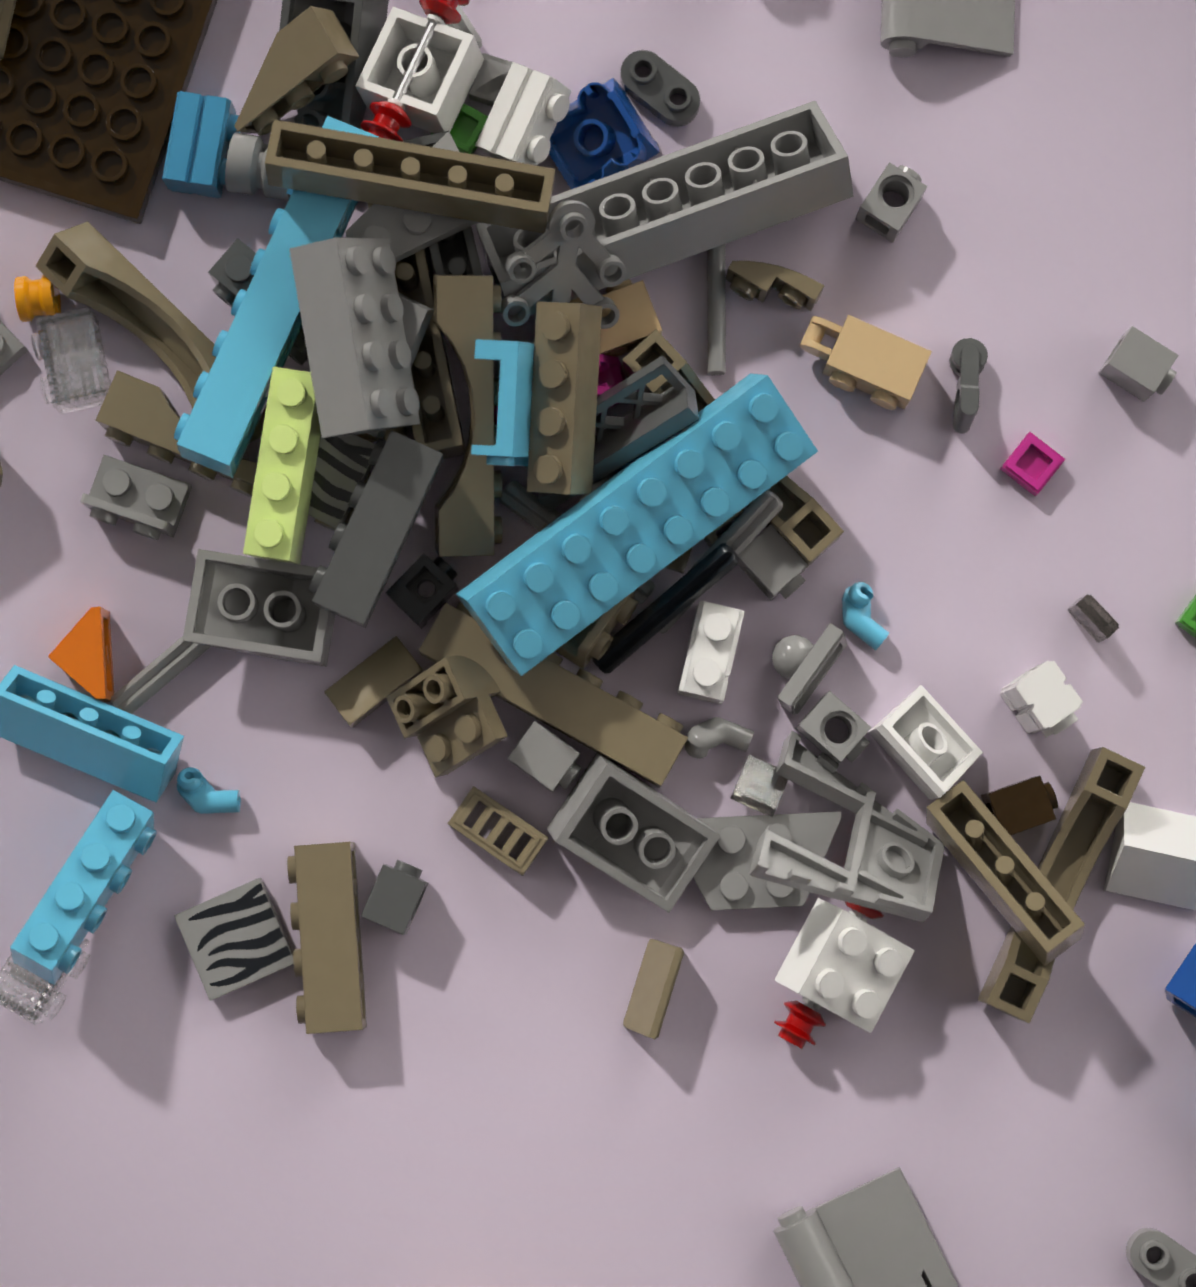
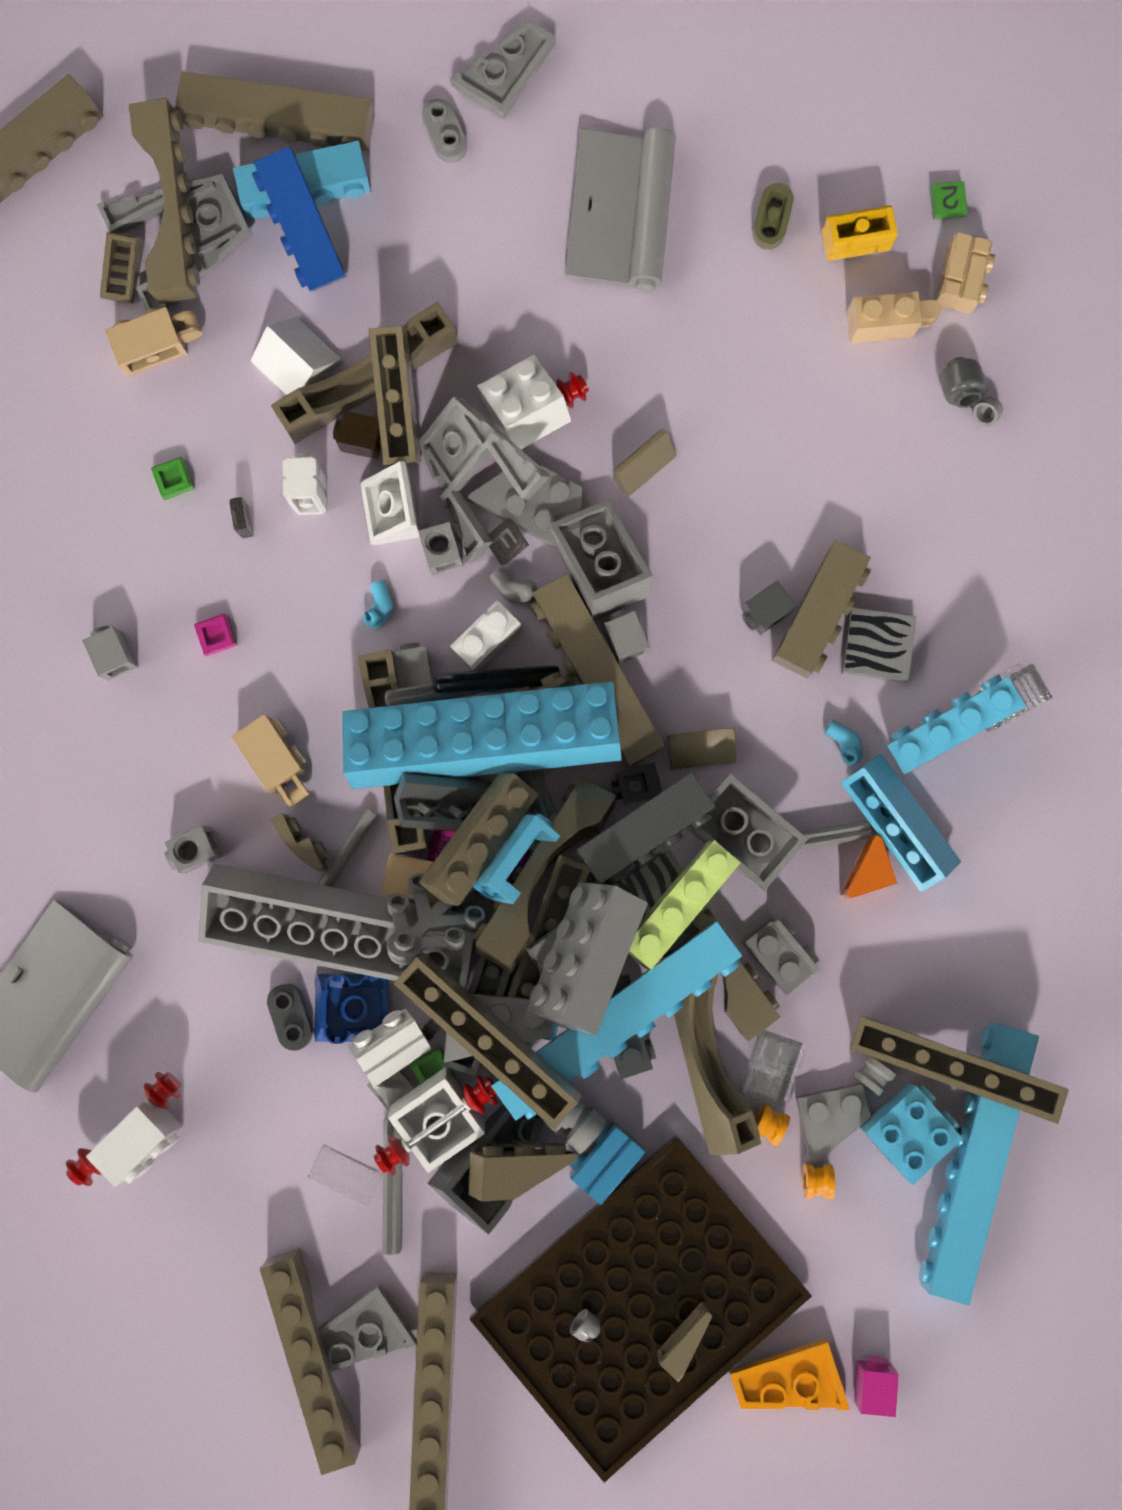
camera: 145 degrees left, 0 degrees up
(449, 712) = (668, 693): dark tan brick -> none
(529, 852) = (686, 594): dark tan slope -> none
(805, 664) = (435, 602): light grey tile -> none
(967, 362) = (212, 721): dark grey piece -> none

